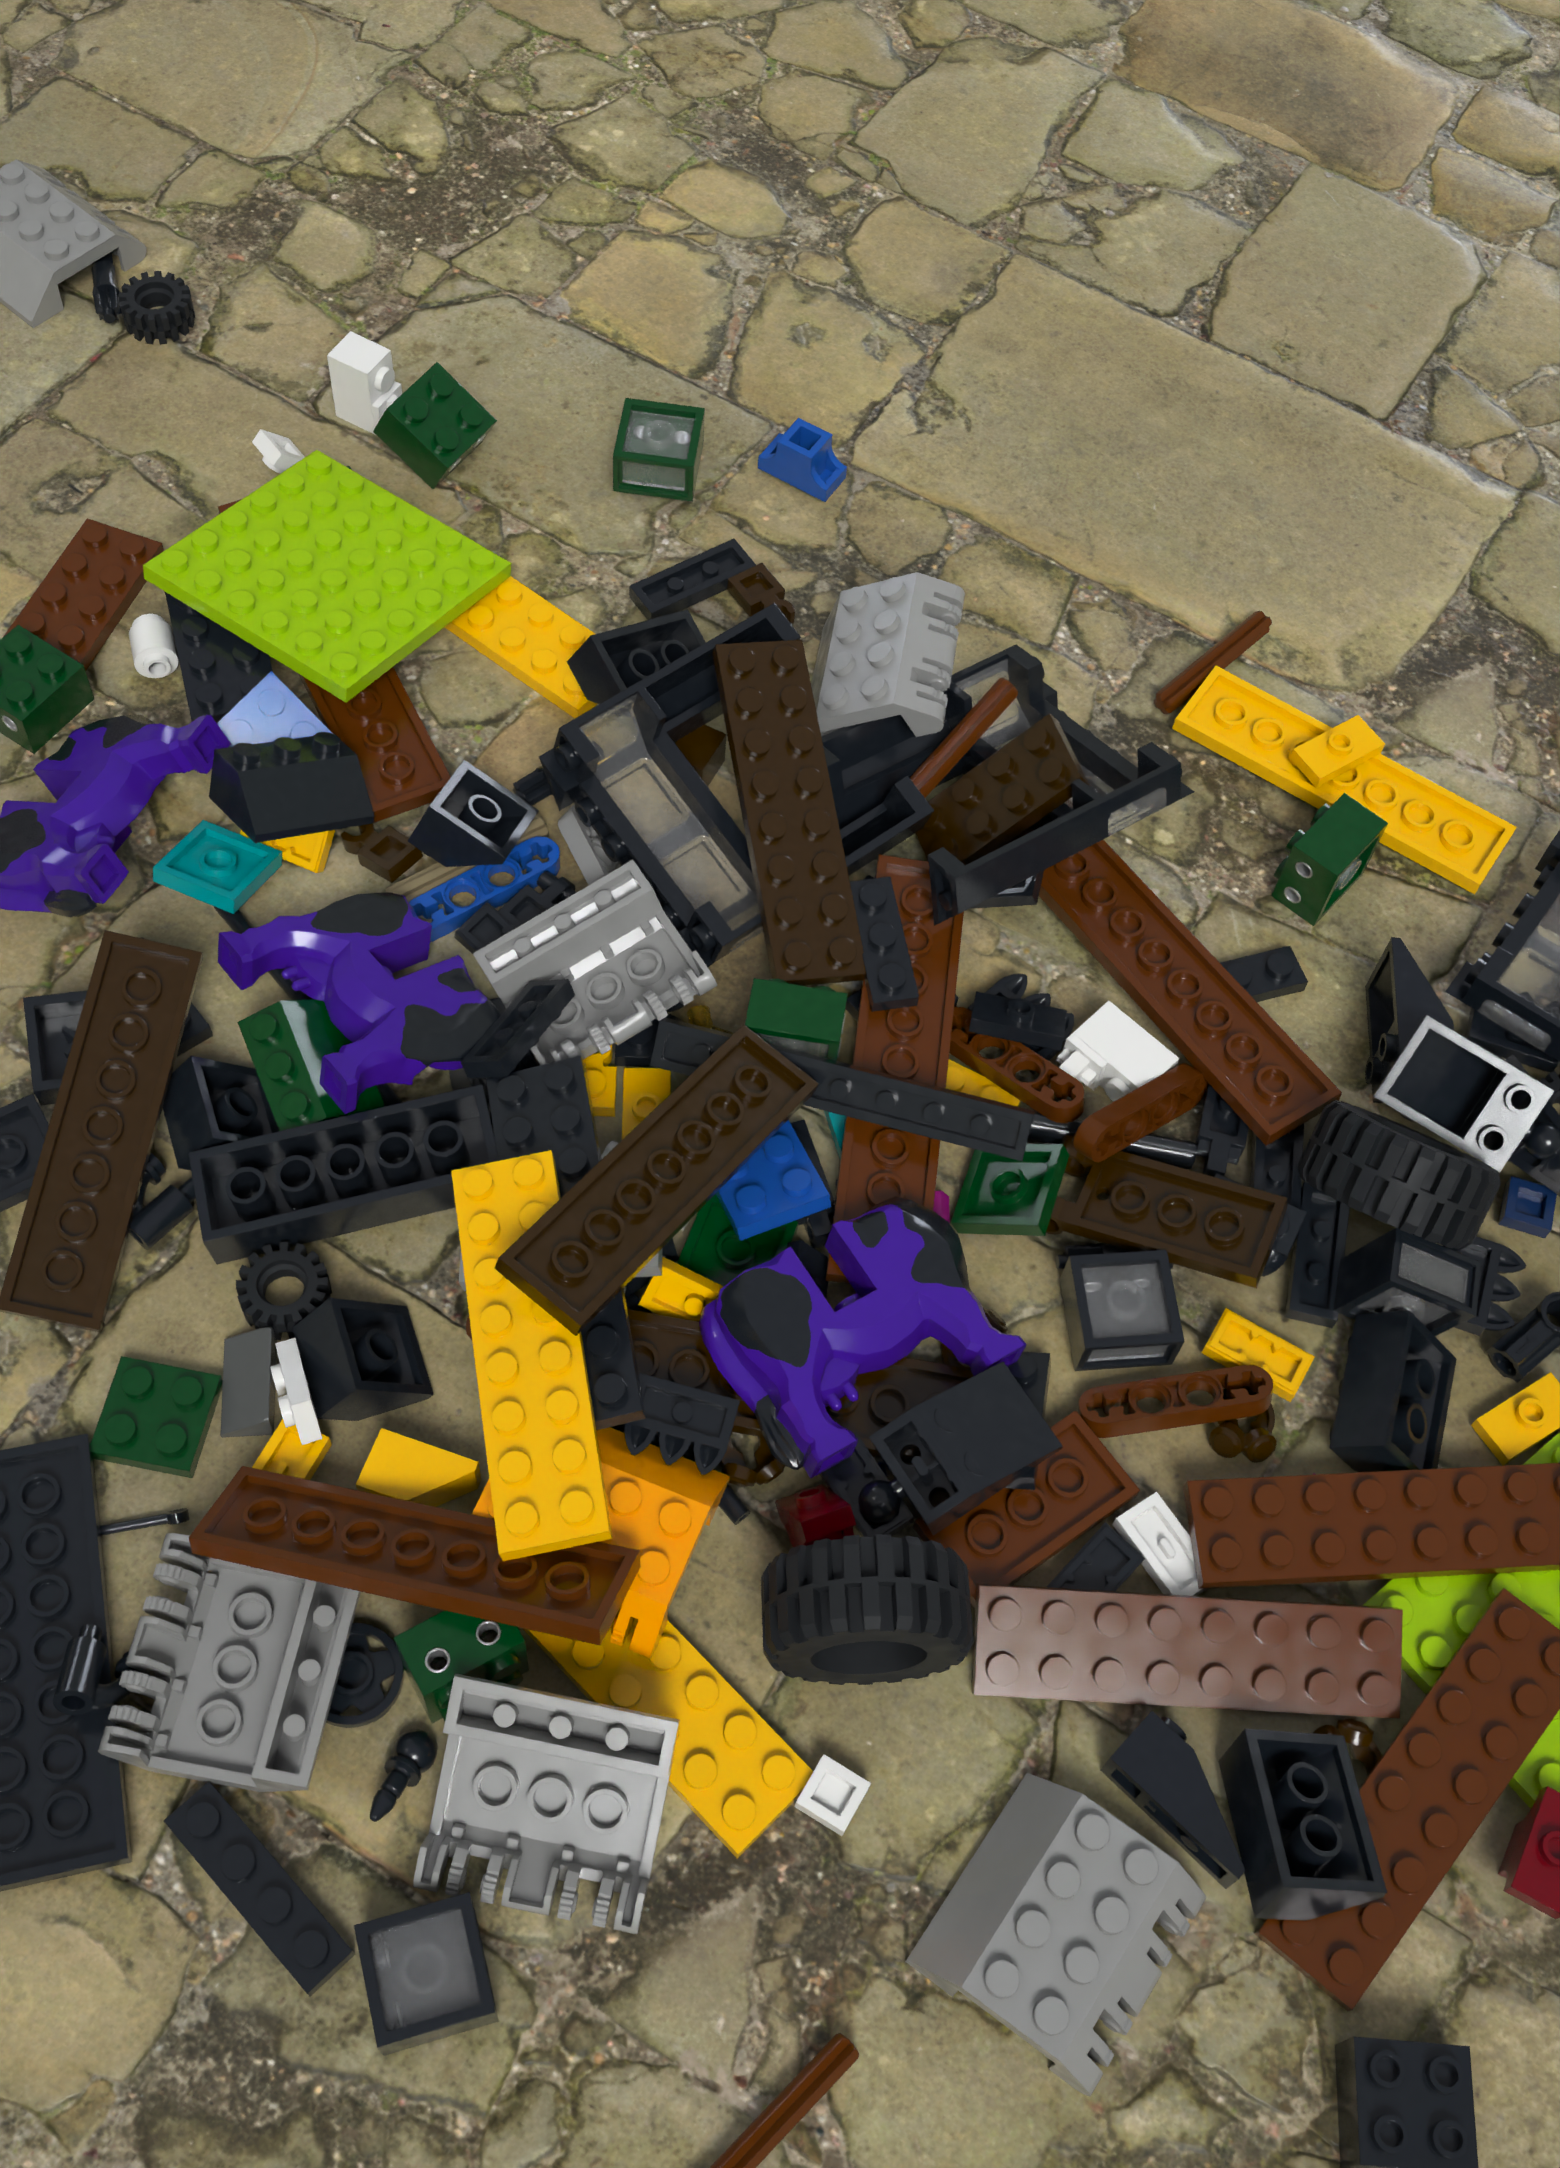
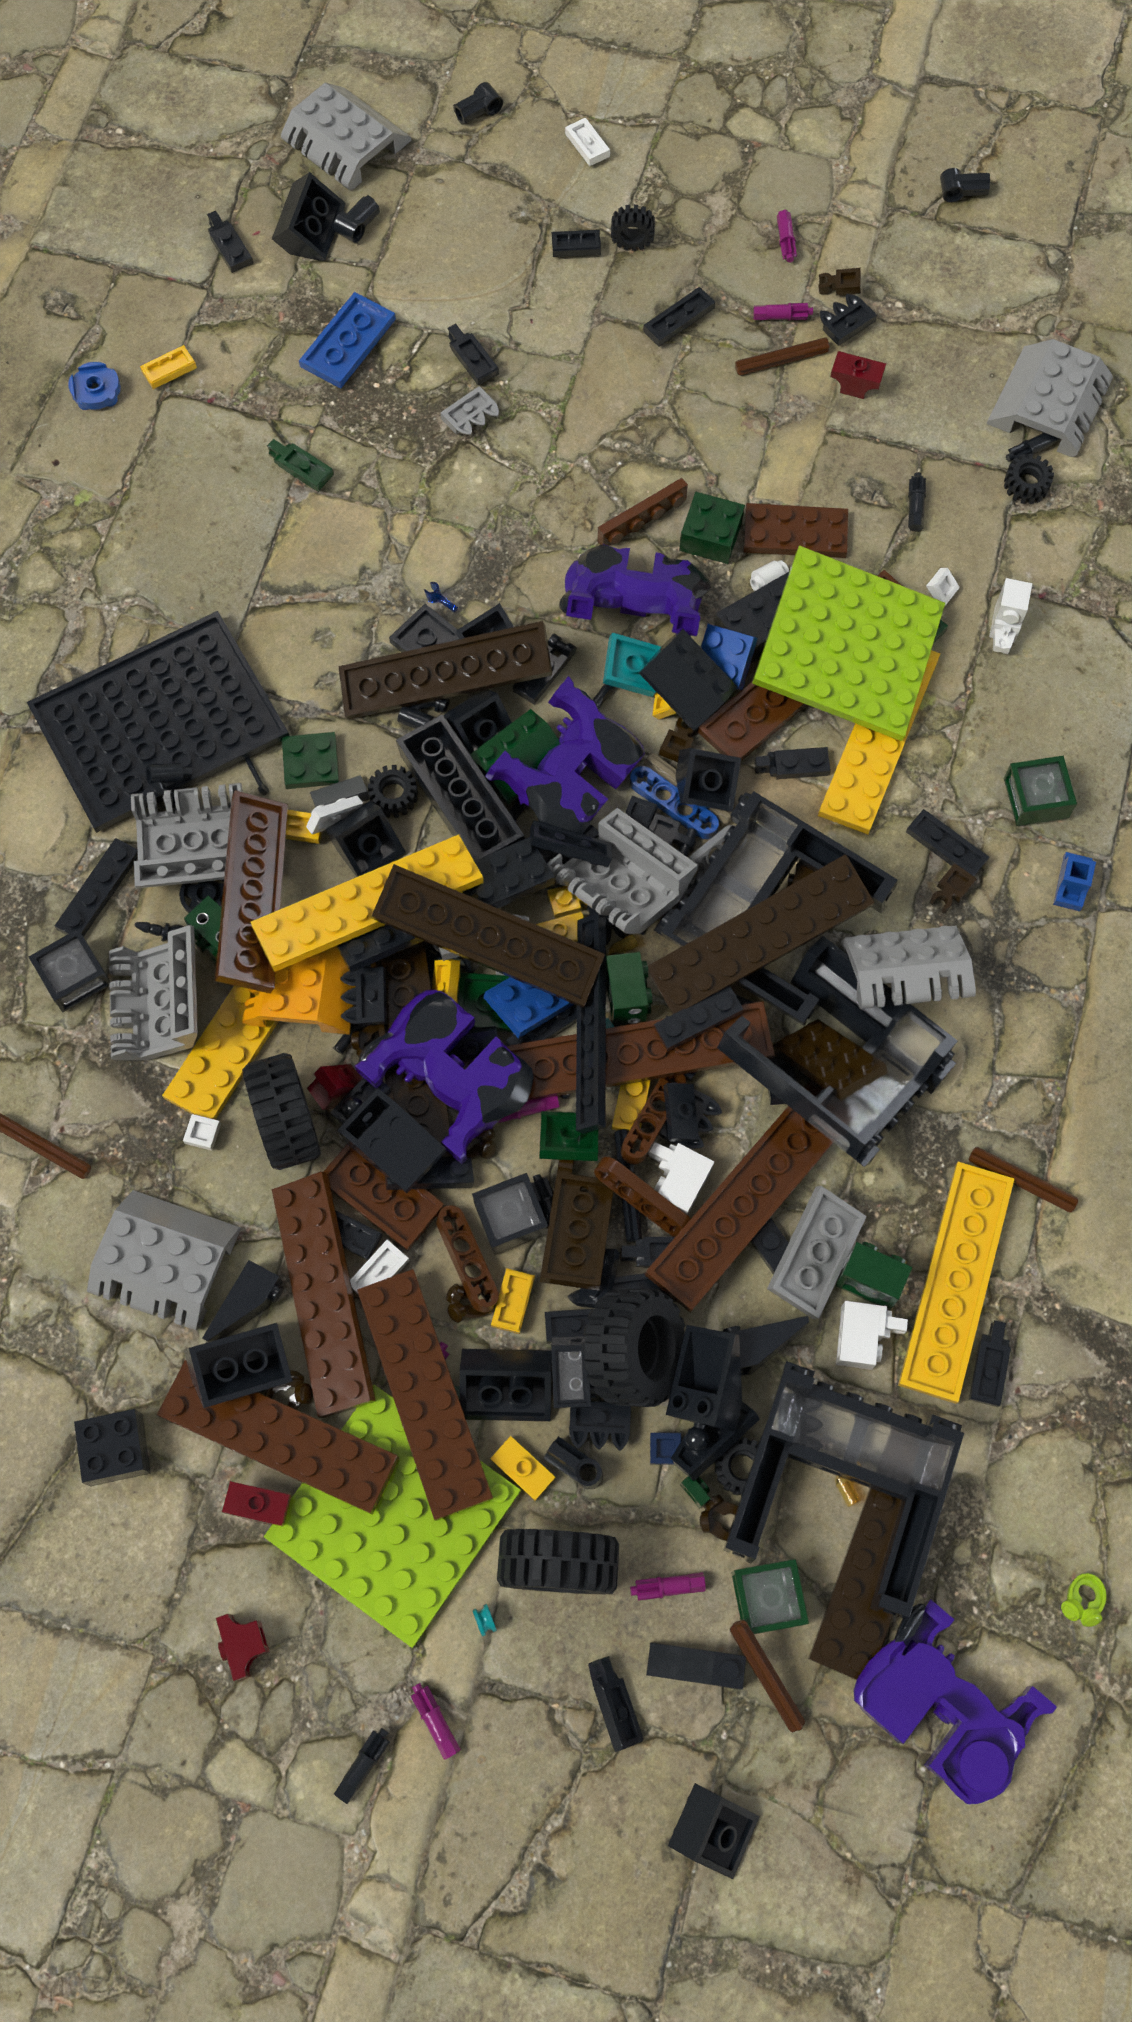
camera: 80 degrees right, 10 degrees up
(122, 439) = (916, 497): none -> black piece
(416, 1471) = (307, 877): yellow slope -> none
(434, 425) = (995, 658): dark green piece -> none
(484, 714) = (794, 763): none -> black hinge
(628, 654) = (857, 829): black slope -> none
(964, 736) = (866, 1026): reddish brown axle -> none
(1273, 920) = (816, 1252): none -> light grey plate
(1337, 751) = (969, 1269): yellow plate -> none
(1400, 907) = (861, 1330): none -> white hinge
(1468, 777) = (990, 1366): none -> black hinge

